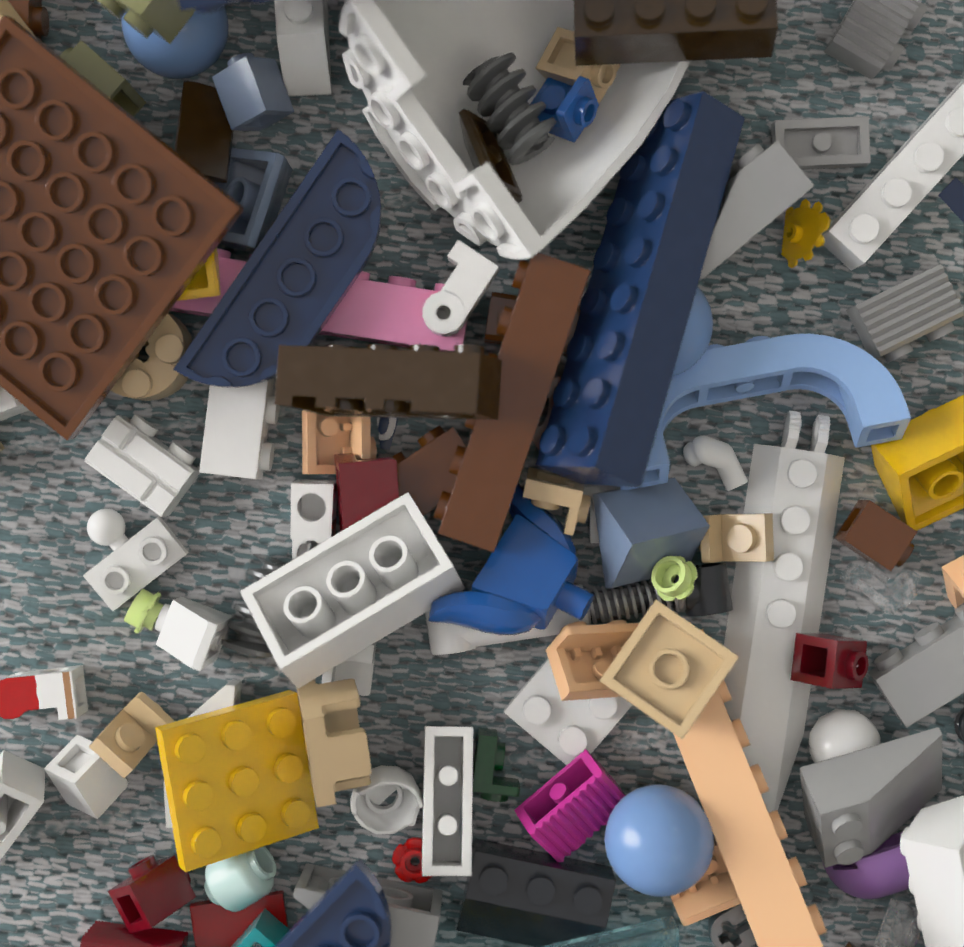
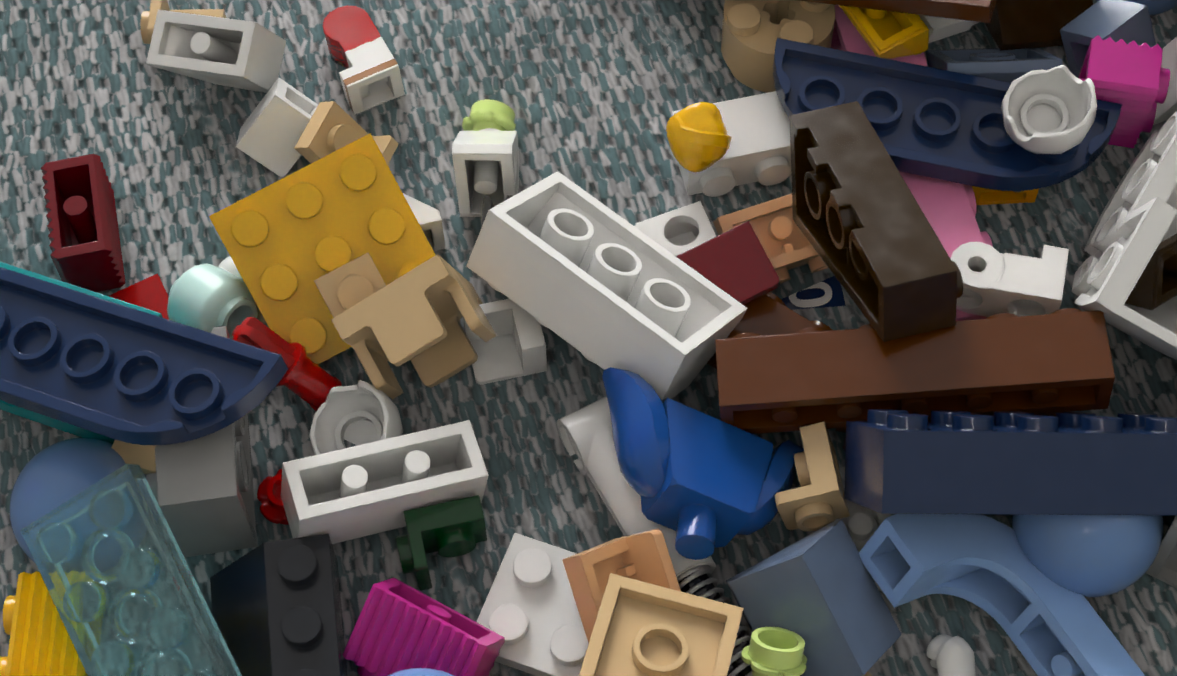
camera: 70 degrees right, 30 degrees down
(133, 560) = (546, 100): white plate -> none
(143, 464) = (654, 70): white brick -> none
(151, 892) = (167, 221): dark red brick -> none
(243, 468) = (698, 136): none -> yellow piece
(283, 774) = (349, 284): none -> tan plate
(313, 117) = (1128, 77): none -> dark pink brick
(318, 840) = (303, 375): none -> red axle
(337, 197) = (1049, 110): none -> white hair

